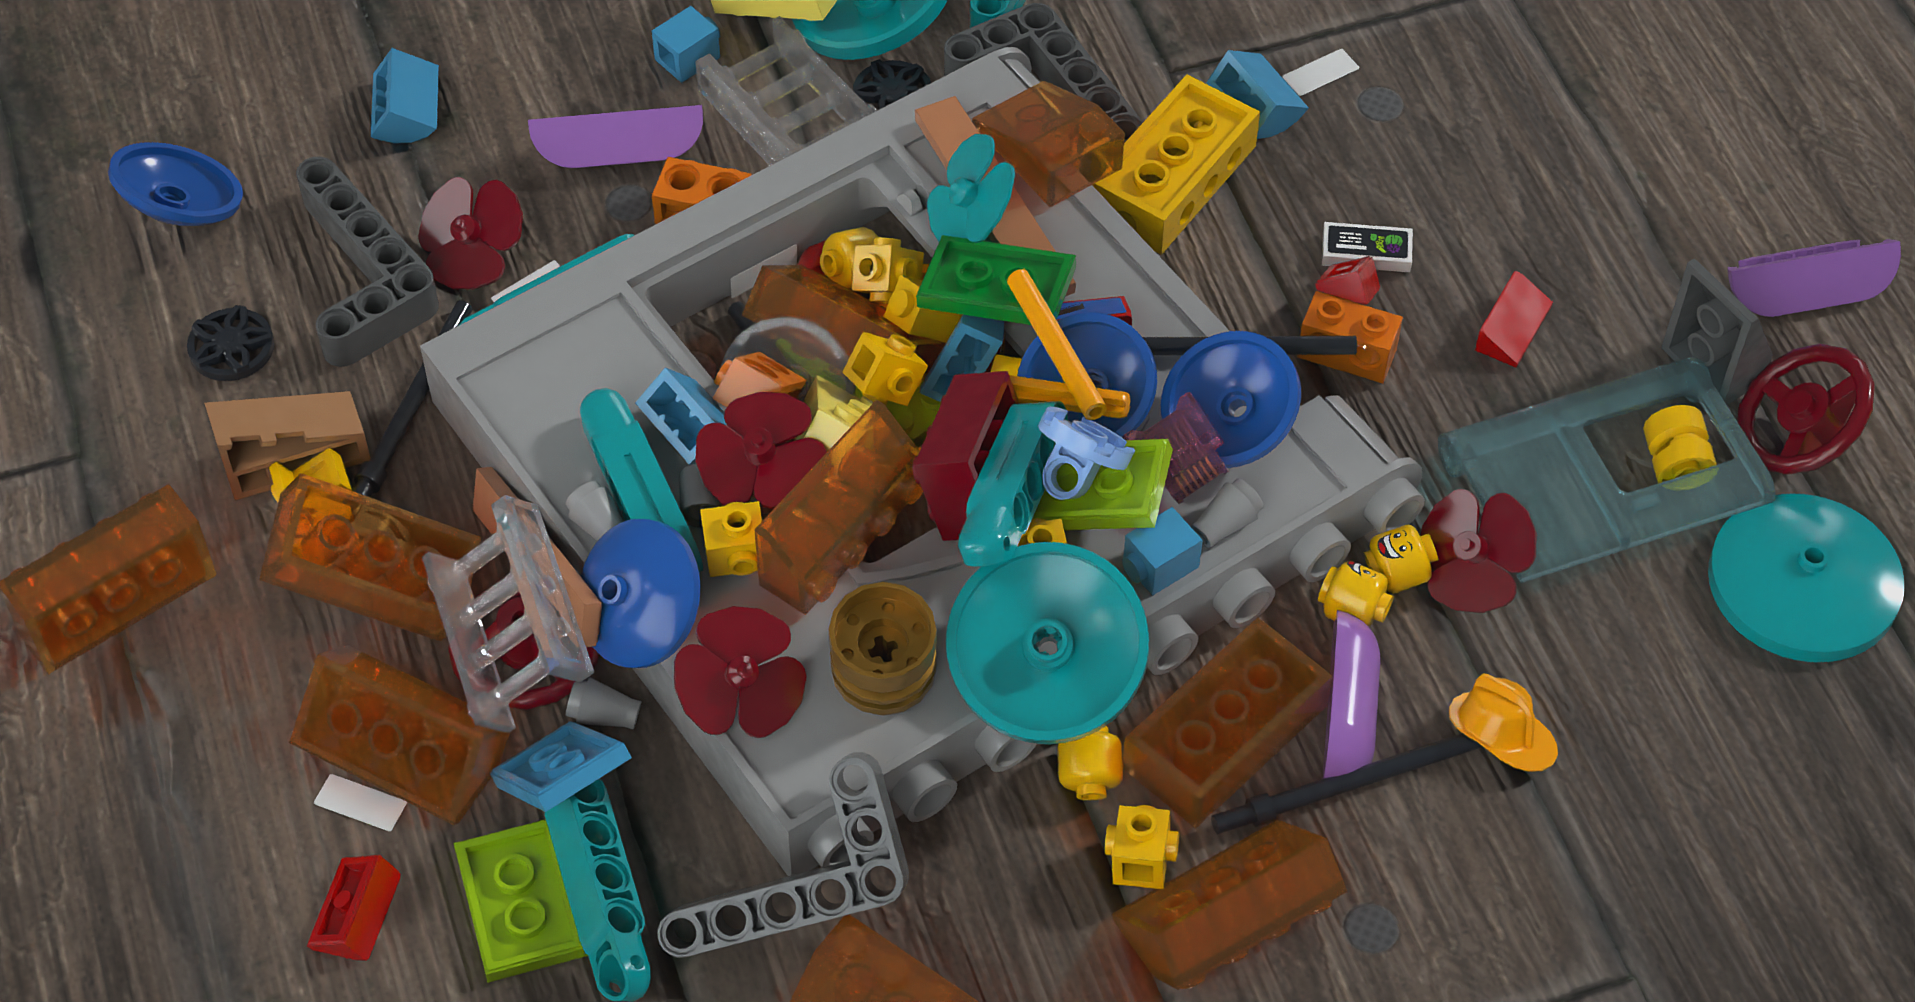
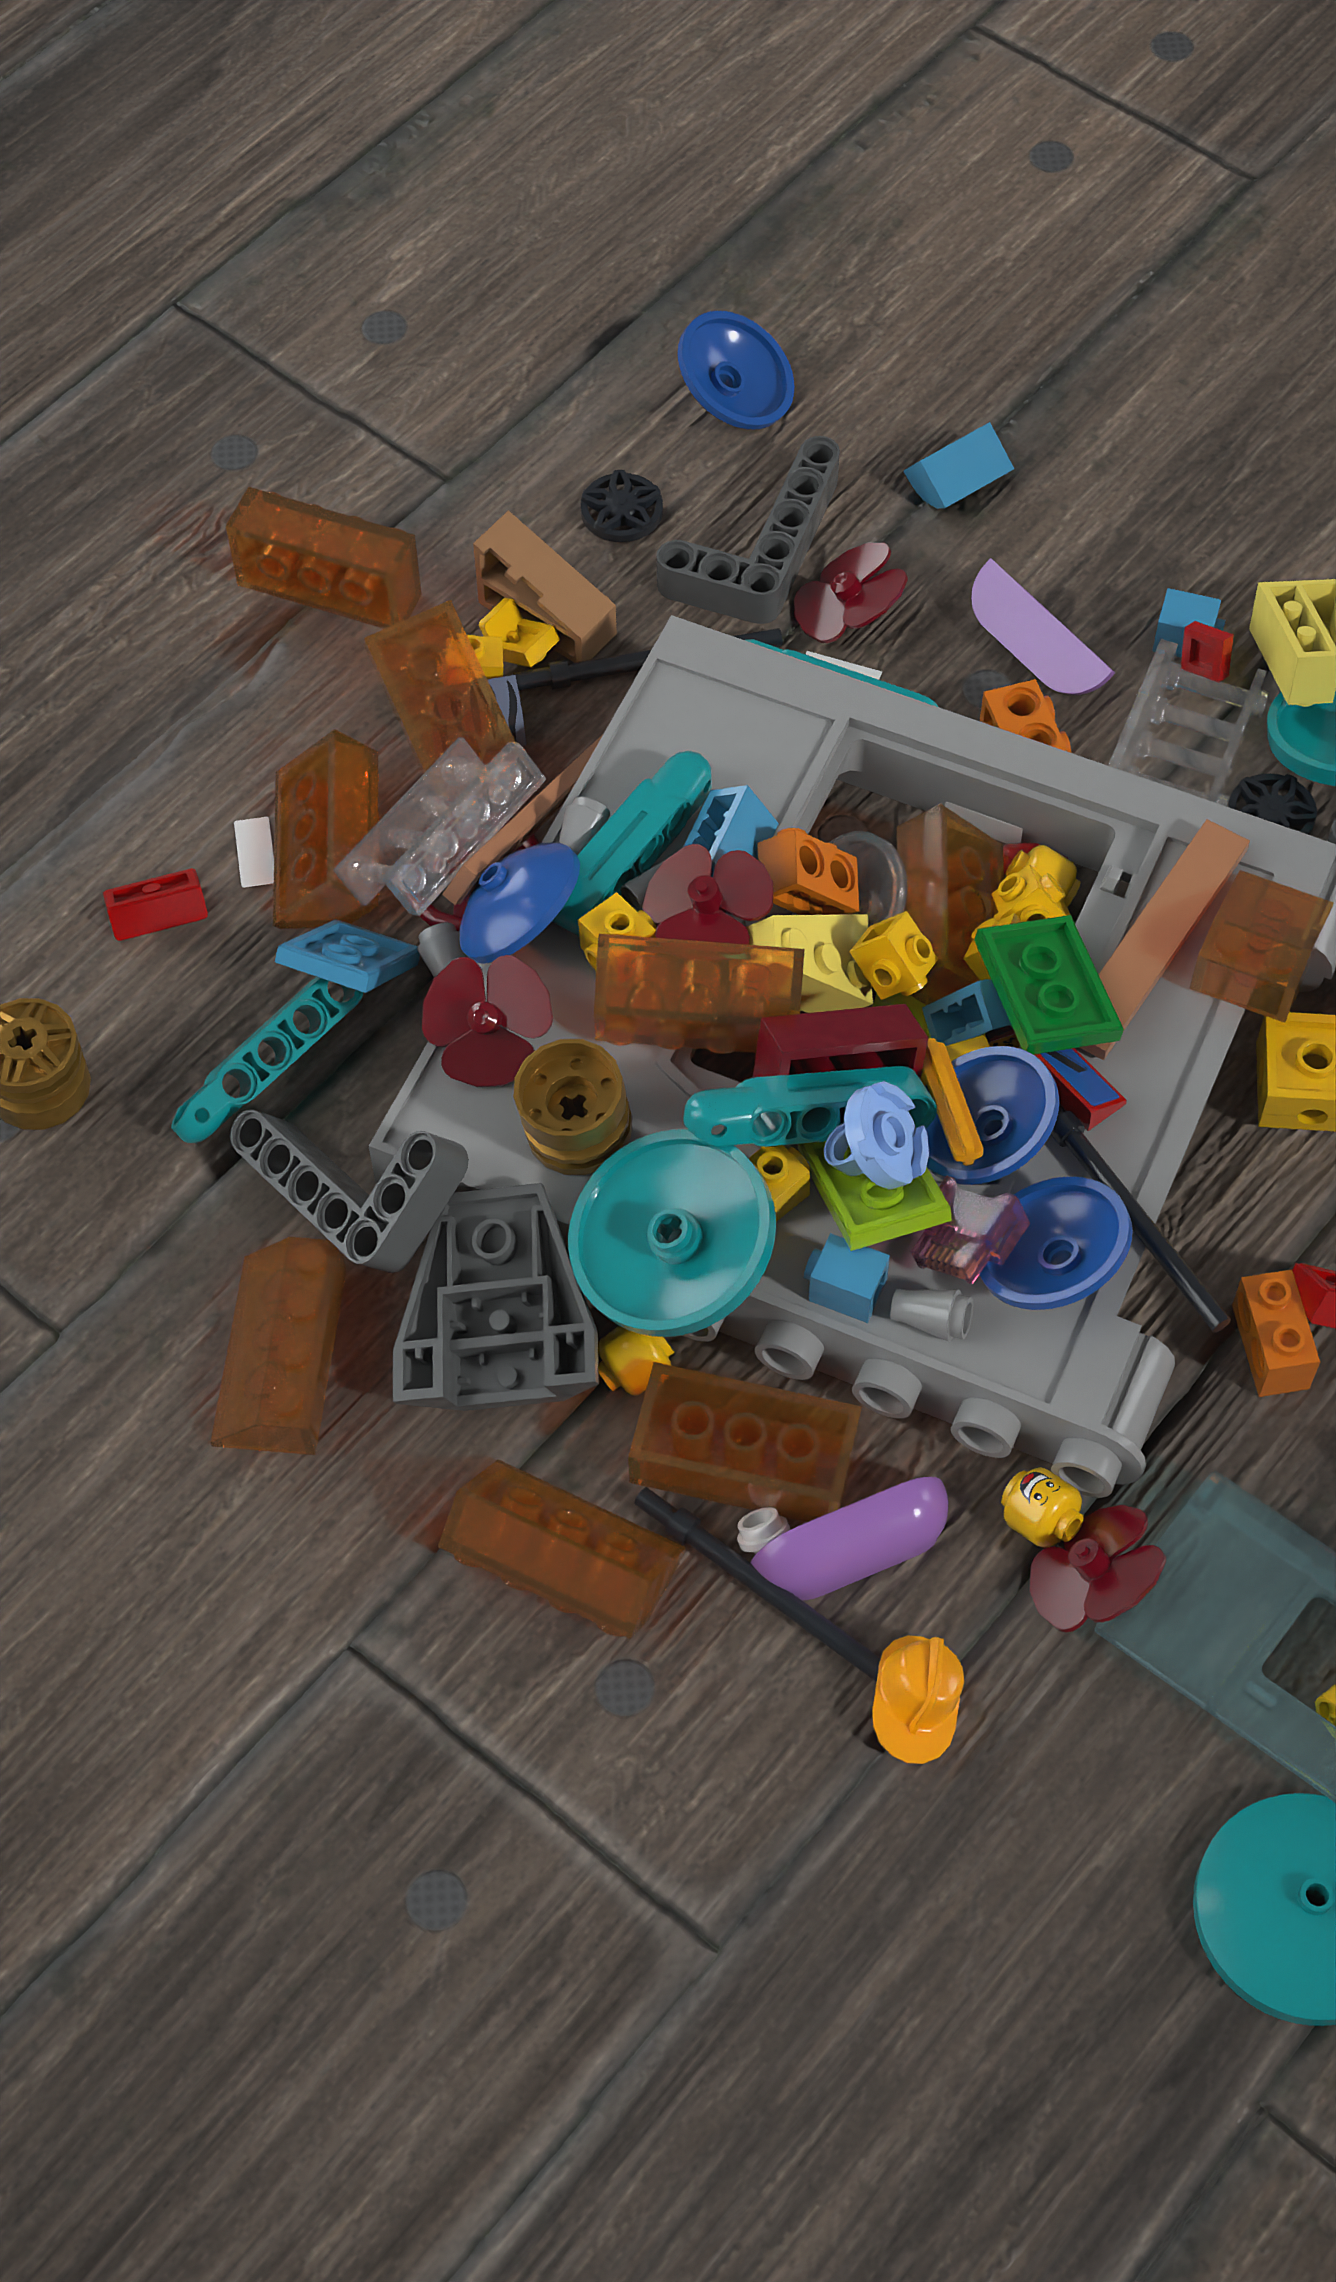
camera: 60 degrees right, 5 degrees up
(518, 901) = (226, 1006): lime tile -> none
(731, 40) = (1206, 651): none -> red plate
(969, 206) = (1122, 911): teal piece -> none
(1000, 819) = (495, 1309): none -> dark grey wedge
(1057, 345) = (988, 1061): light orange piece -> none
(1141, 846) = (567, 1441): yellow brick -> none
(1302, 754) = (760, 1528): none -> white plate
(1357, 592) = (969, 1487): yellow head -> none

